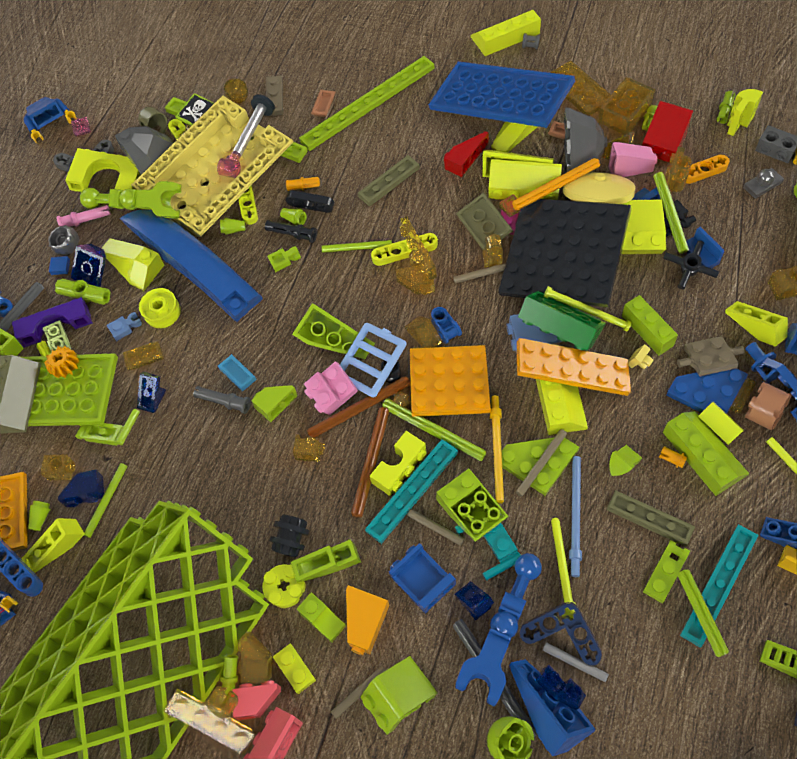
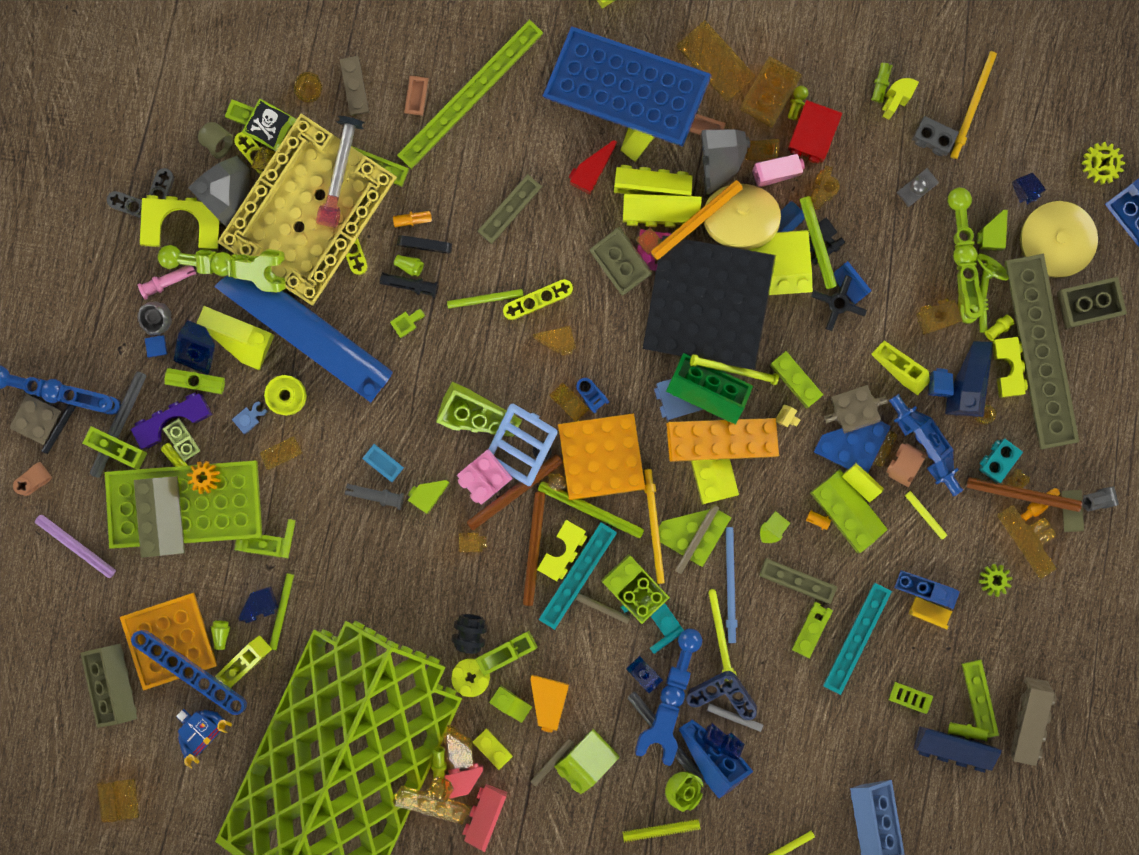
camera: 15 degrees left, 25 degrees up
(44, 112) = (75, 134): blue torso -> none
(52, 462) = (218, 588): clear yellow brick -> none
(80, 126) = (126, 148): clear pink plate -> none
(149, 392) = (299, 497): clear blue slope -> none
(231, 226) = (342, 282): lime cone -> none
(419, 255) = (555, 312): clear yellow plate -> none
(421, 578) = (595, 658): blue panel -> none
(479, 273) = (620, 325): dark tan bar -> none
(494, 252) = (633, 303): clear yellow leg -> none
(703, 613) = (841, 667): lime axle -> none
(710, 163) = (871, 170): light orange beam -> none

